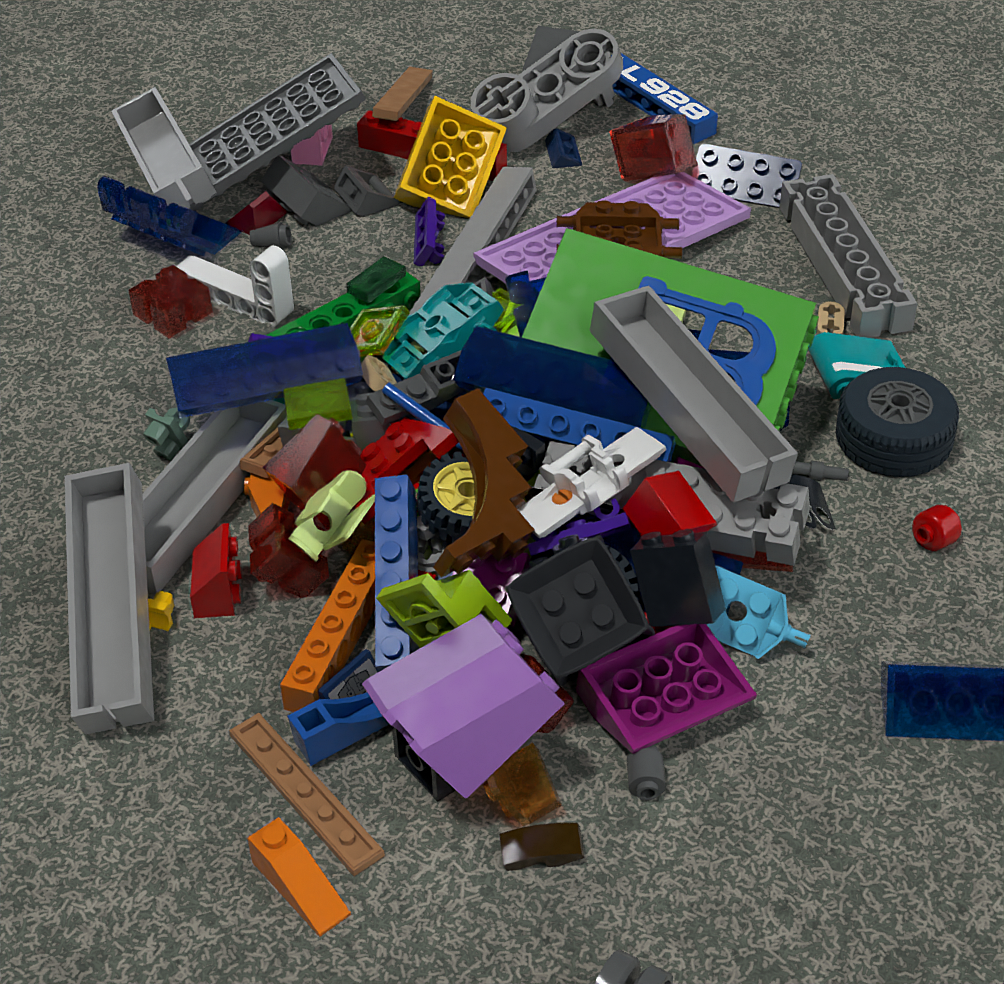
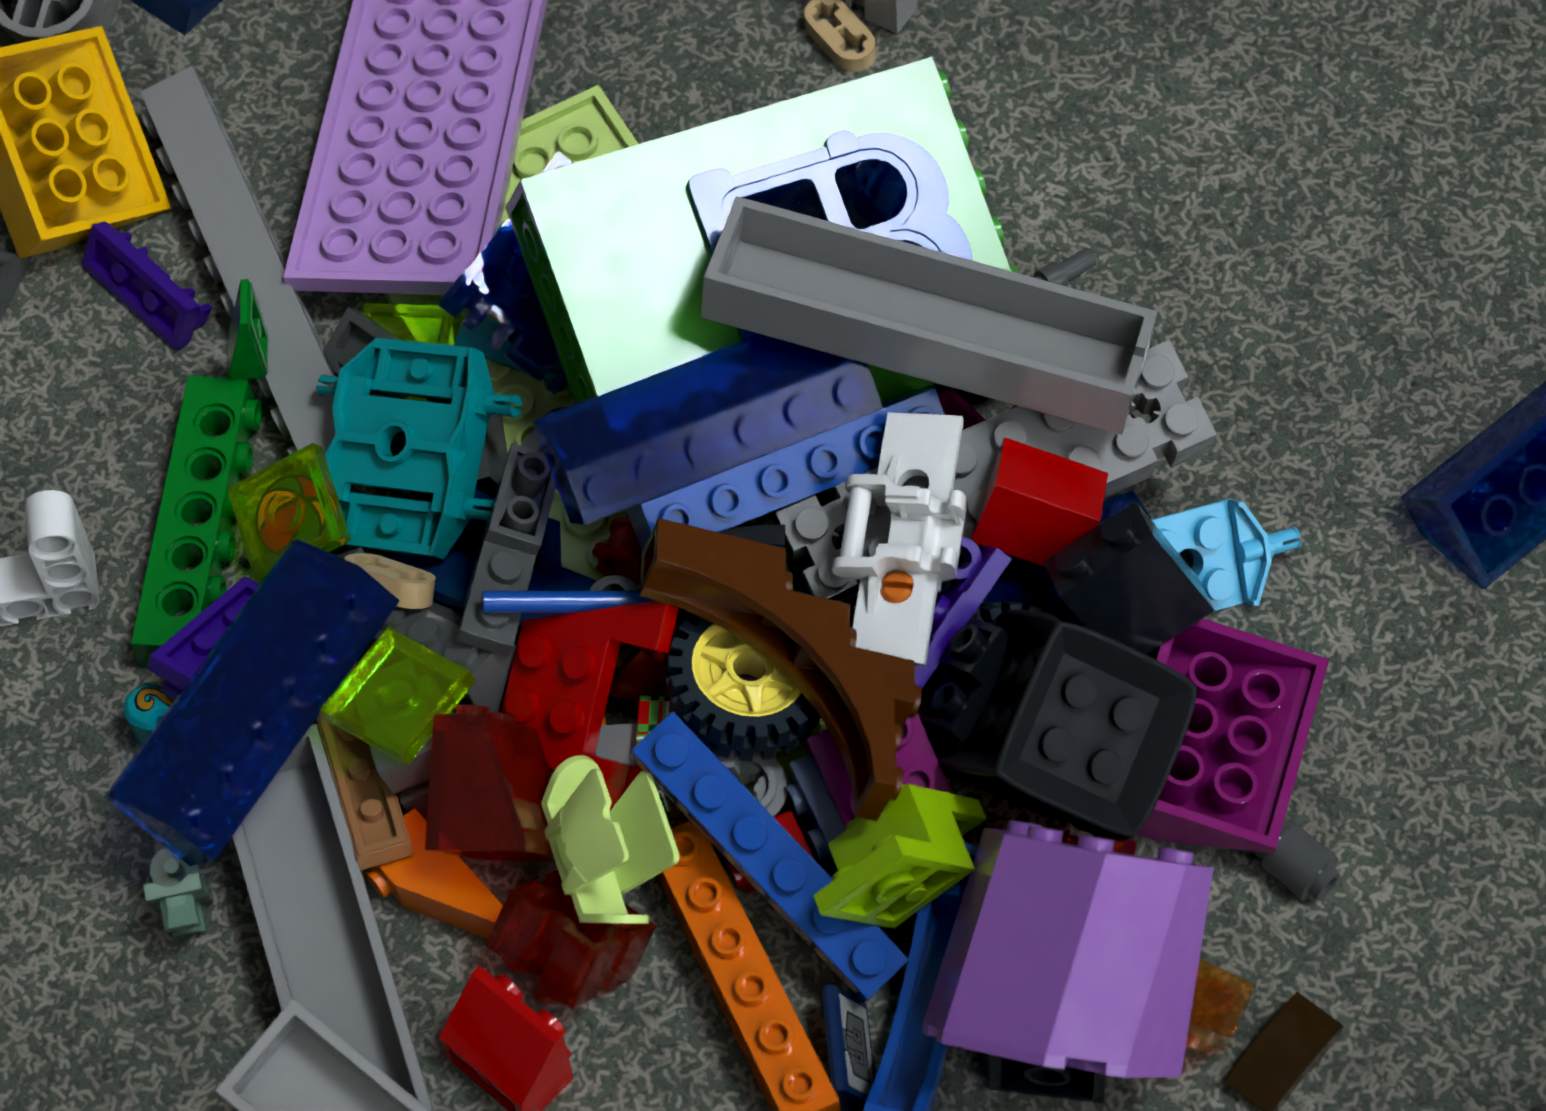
camera: 40 degrees left, 15 degrees up
(376, 279) = (197, 426): clear green plate -> none
(430, 256) = (247, 337): none -> green slope
(628, 215) = (517, 104): reddish brown piece -> none
(845, 357) = (969, 56): teal door -> none
(897, 421) = (1088, 135): black wheel -> none
(938, 527) = (1274, 253): red head -> none

